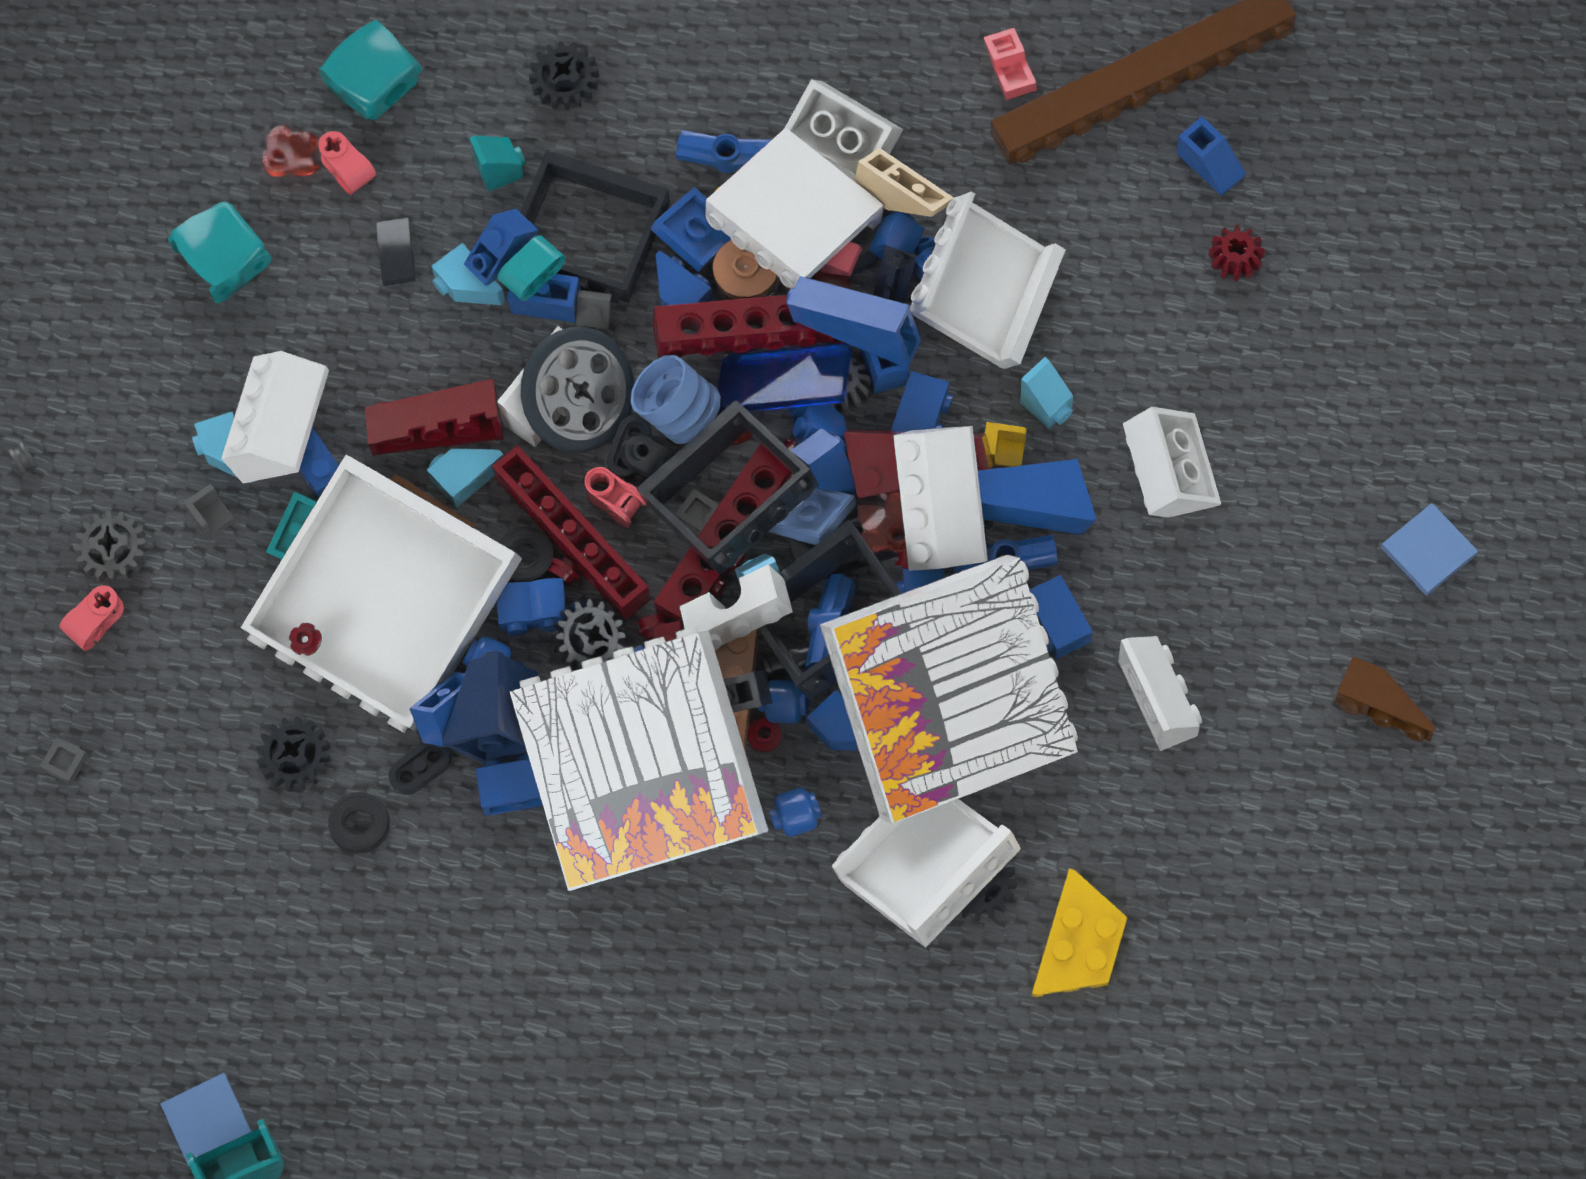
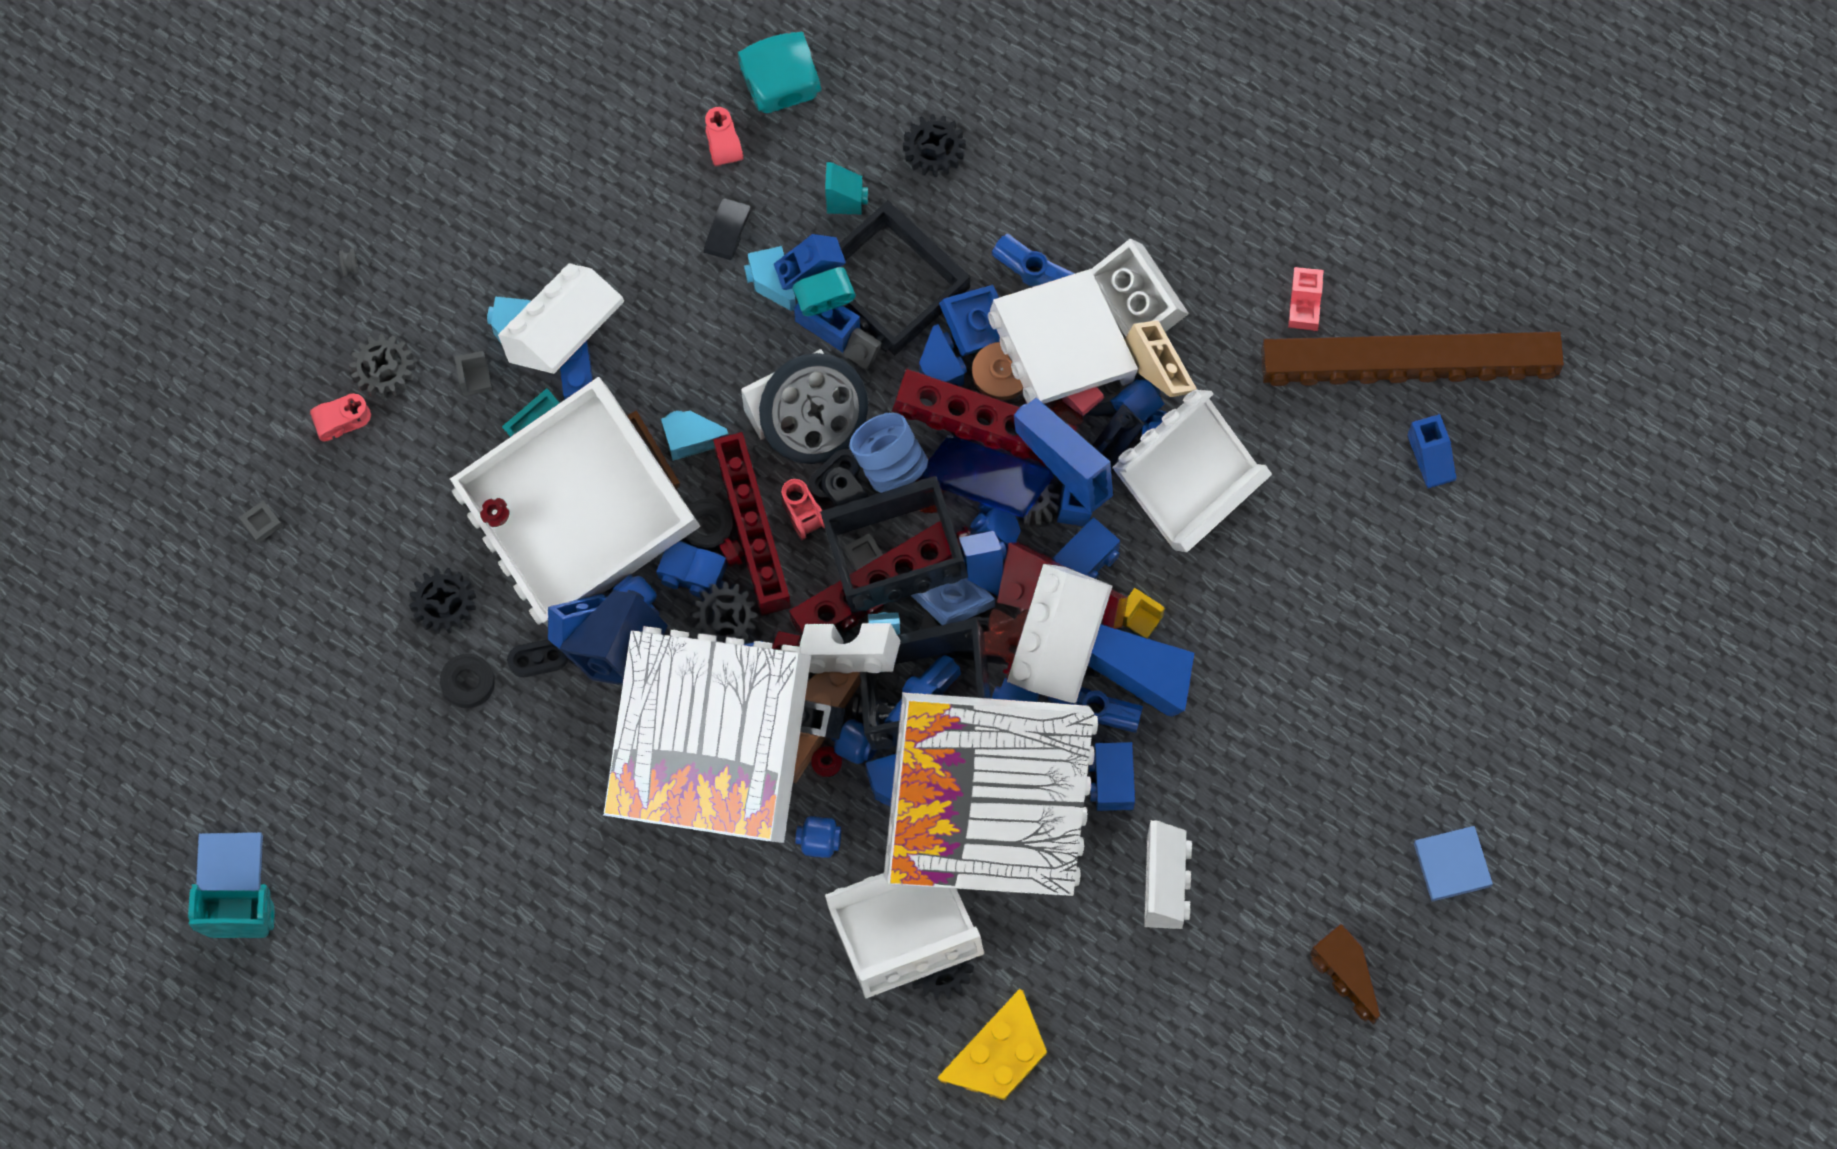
camera: 20 degrees right, 0 degrees up
(221, 249) = (587, 164): teal piece -> none
(292, 149) = (686, 109): clear red plate -> none
(435, 419) = (689, 381): dark red wedge -> none
(507, 786) = (595, 706): blue brick -> none
(647, 623) = (779, 625): dark red plate -> none
(1046, 394) = (1195, 587): medium azure slope -> none
(1171, 462) = (1272, 691): white slope -> none
(1233, 262) = (1406, 548): dark red gear -> none

